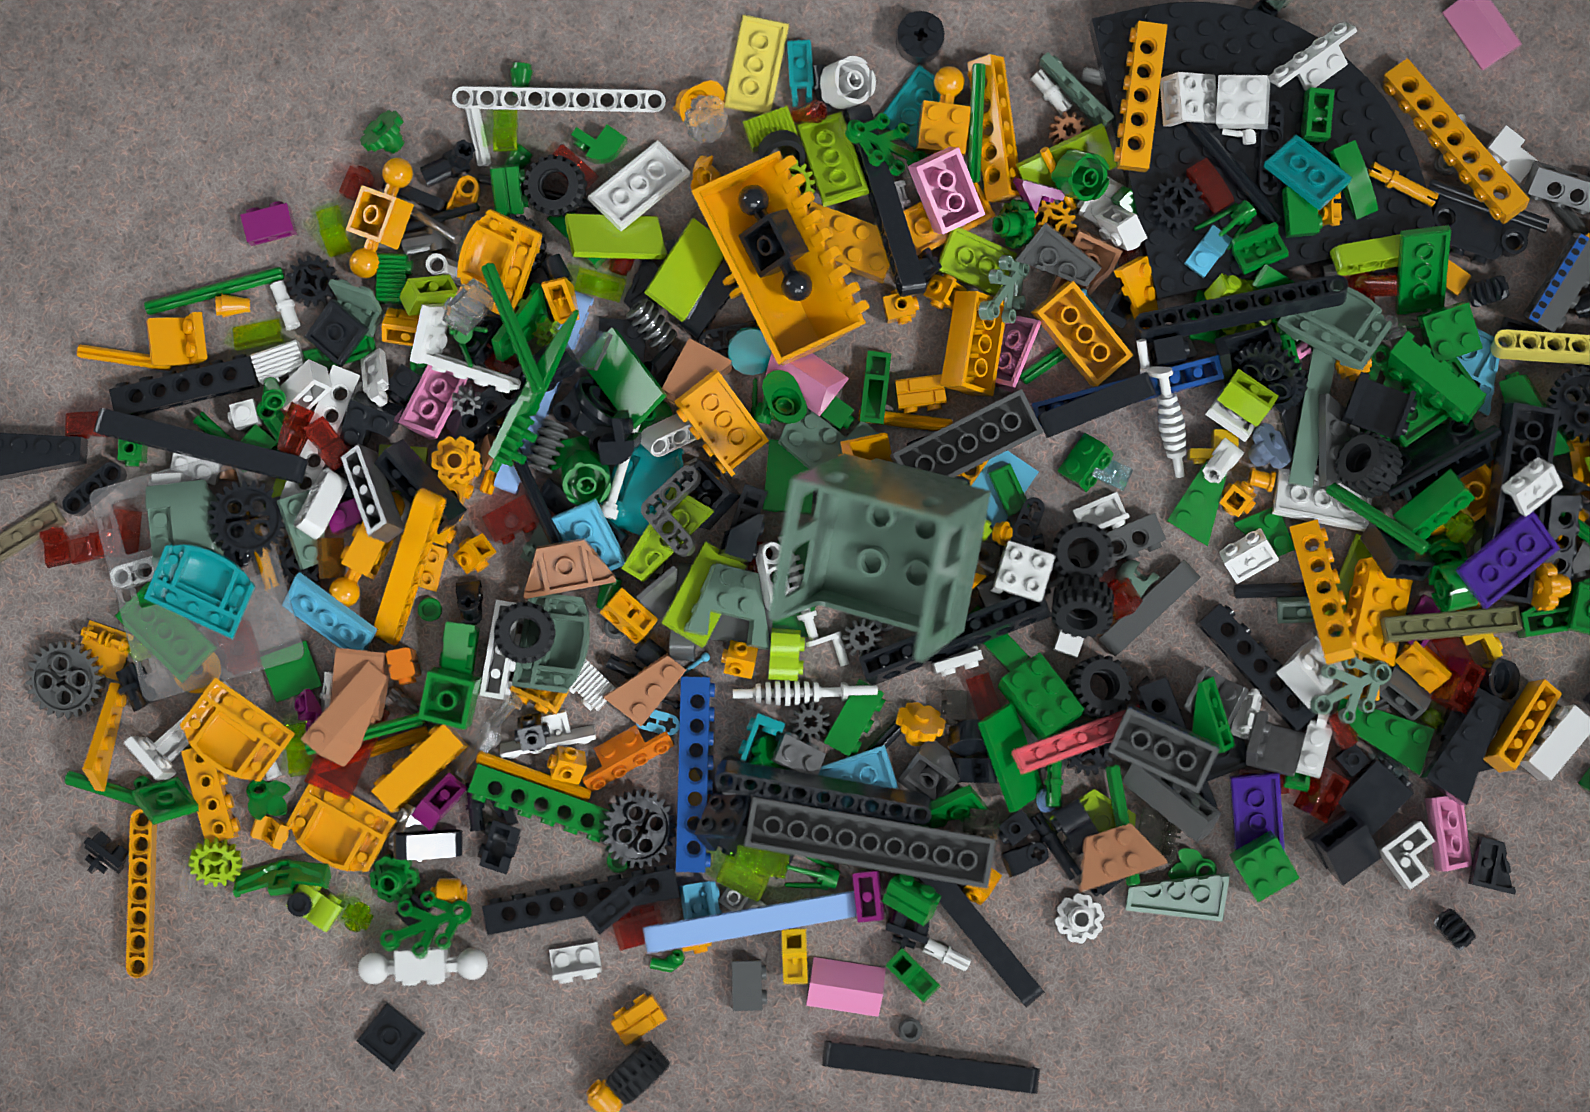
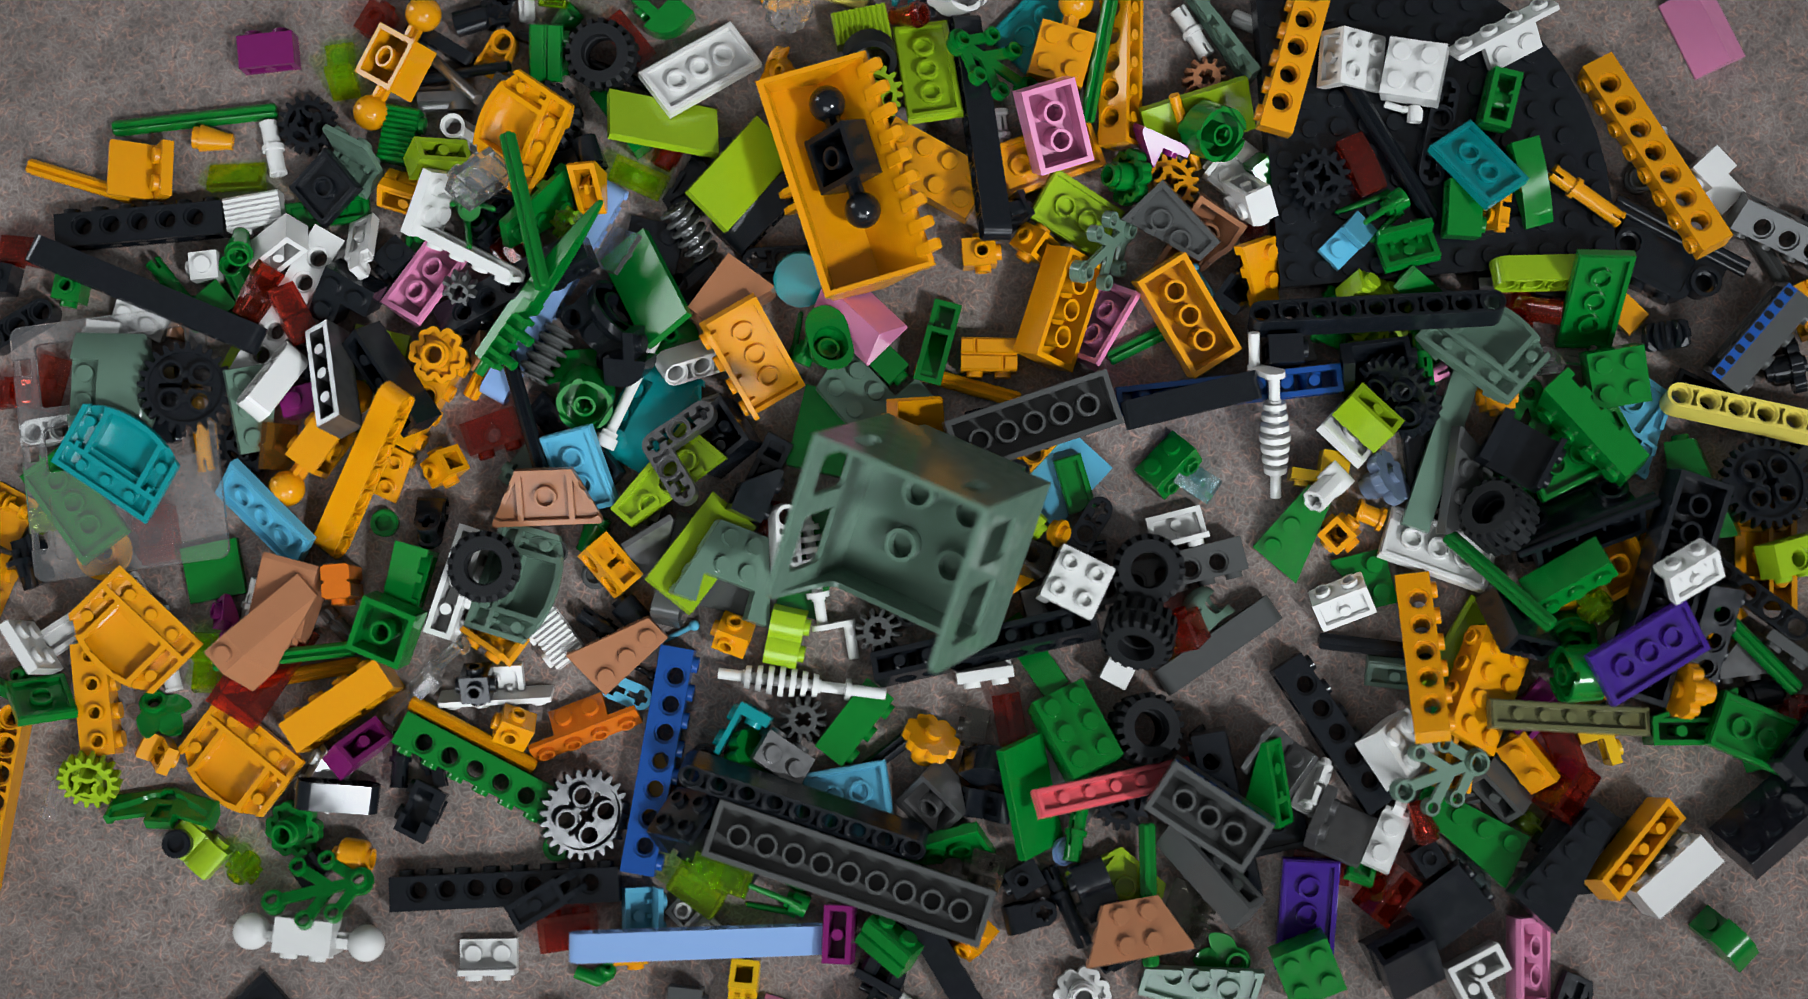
camera: 10 degrees right, 0 degrees up
(1501, 678) = (1616, 789): black piece -> none

